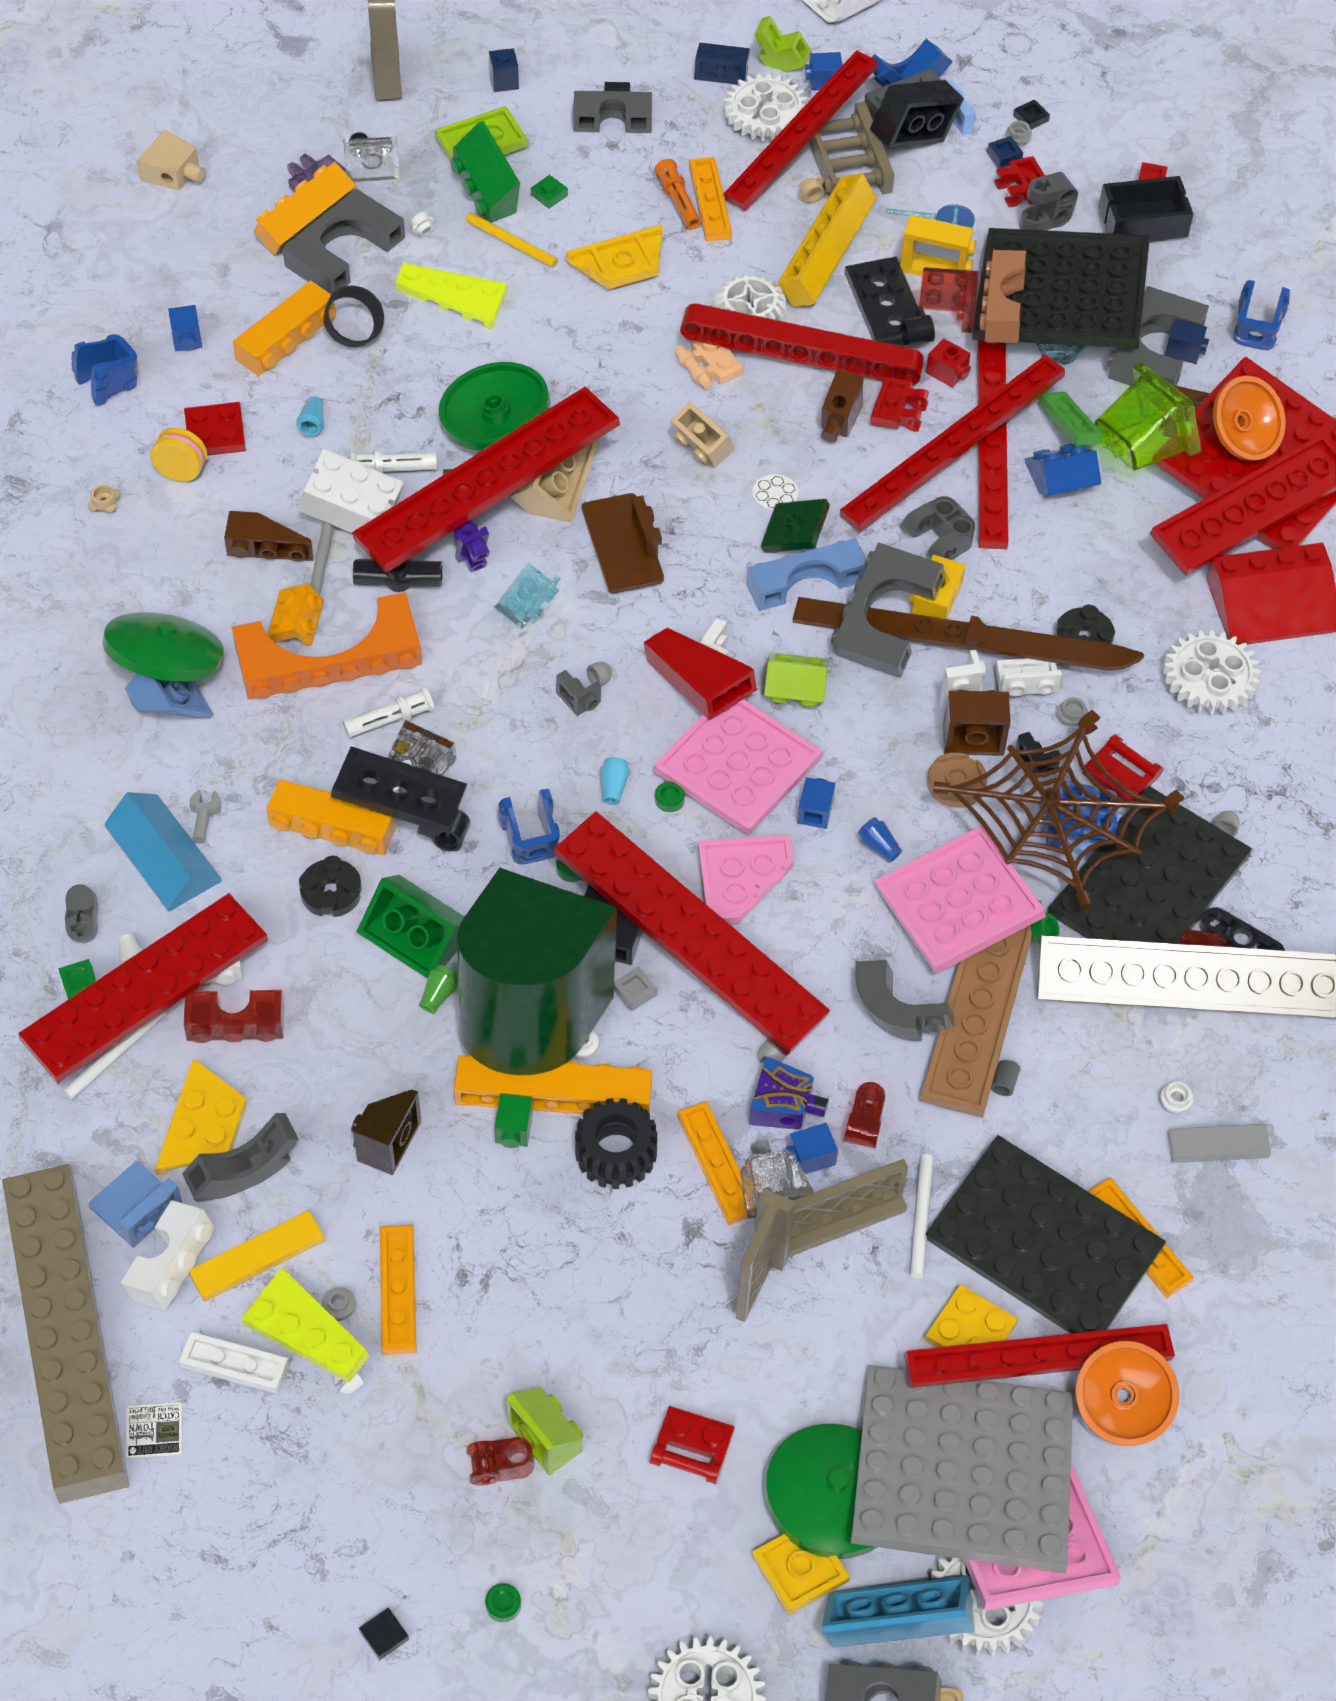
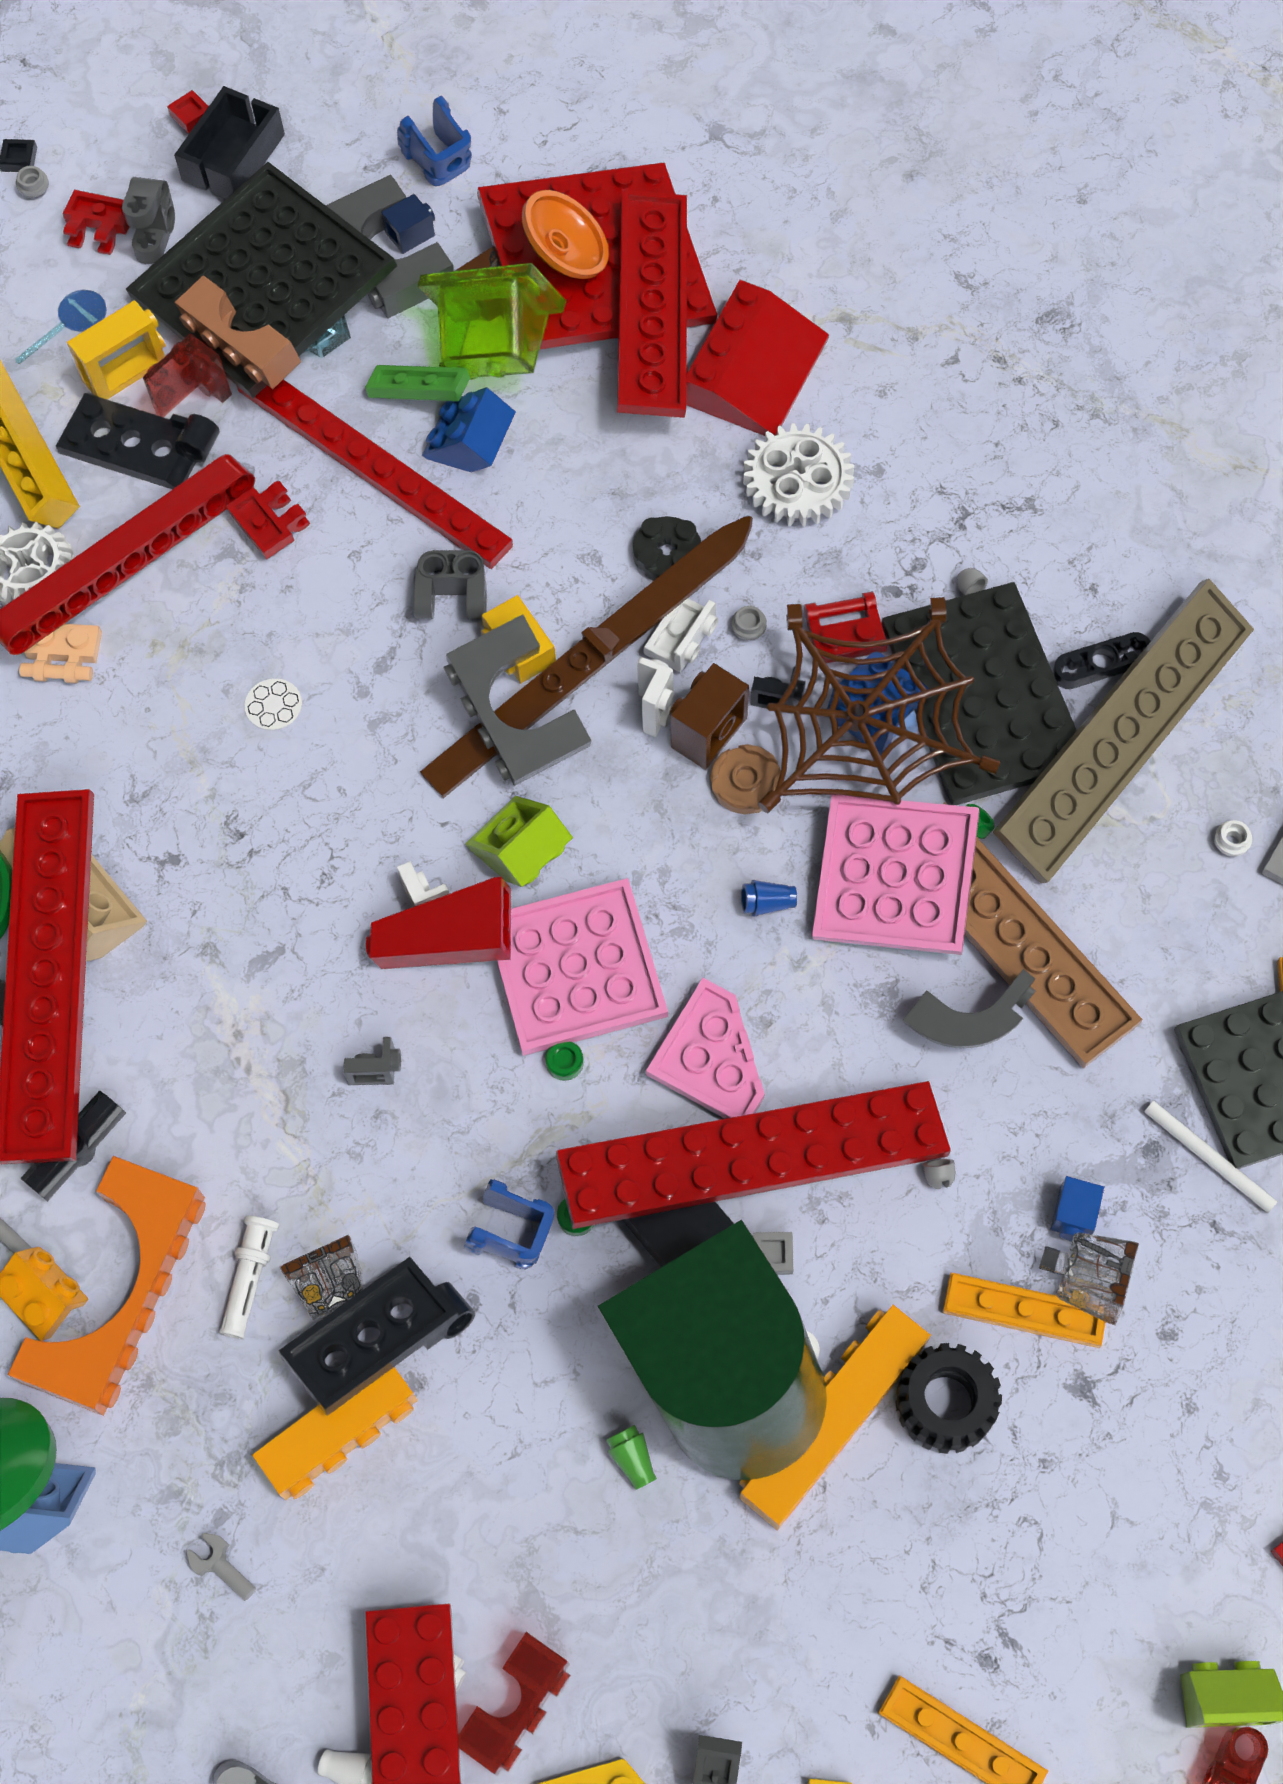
camera: 50 degrees left, 10 degrees up
(160, 849) = (232, 1645): dark azure slope -> none
(330, 871) = (437, 1502): pearl dark grey plate -> none
(386, 1130) = (783, 1634): dark brown slope -> none
(411, 925) = (537, 1430): green slope -> none
(472, 545) = (109, 1046): dark purple hips -> none
(513, 1120) = (848, 1485): green brick -> none
(526, 595) = (212, 1031): clear light blue bracket -> none
(599, 672) = (364, 1026): light grey hinge -> none
(614, 778) = (506, 1101): medium azure cone -> none
(624, 541) = (219, 888): reddish brown bracket -> none
(702, 435) = (154, 724): tan brick -> none
(767, 1248) = (1200, 1347): dark tan fence -> none
(784, 1097) = (999, 1193): torso -> none
(795, 525) = (338, 714): dark green plate -> none
(816, 802) = (682, 925): blue brick -> none
(836, 563) = (415, 707): medium blue arch -> none
(842, 405) = (232, 570): reddish brown torso -> none
(848, 1207) = (1165, 1230): dark tan fence -> none
(865, 1118) = (1075, 1136): clear red piece -> none
(948, 363) = (258, 439): red brick -> none
(952, 443) = (361, 506): red plate -> none
(1004, 151) = (44, 209): dark blue plate -> none
(1005, 1077) = (1114, 971): dark grey hinge -> none
(1203, 938) = (1088, 694): clear red cone -> none

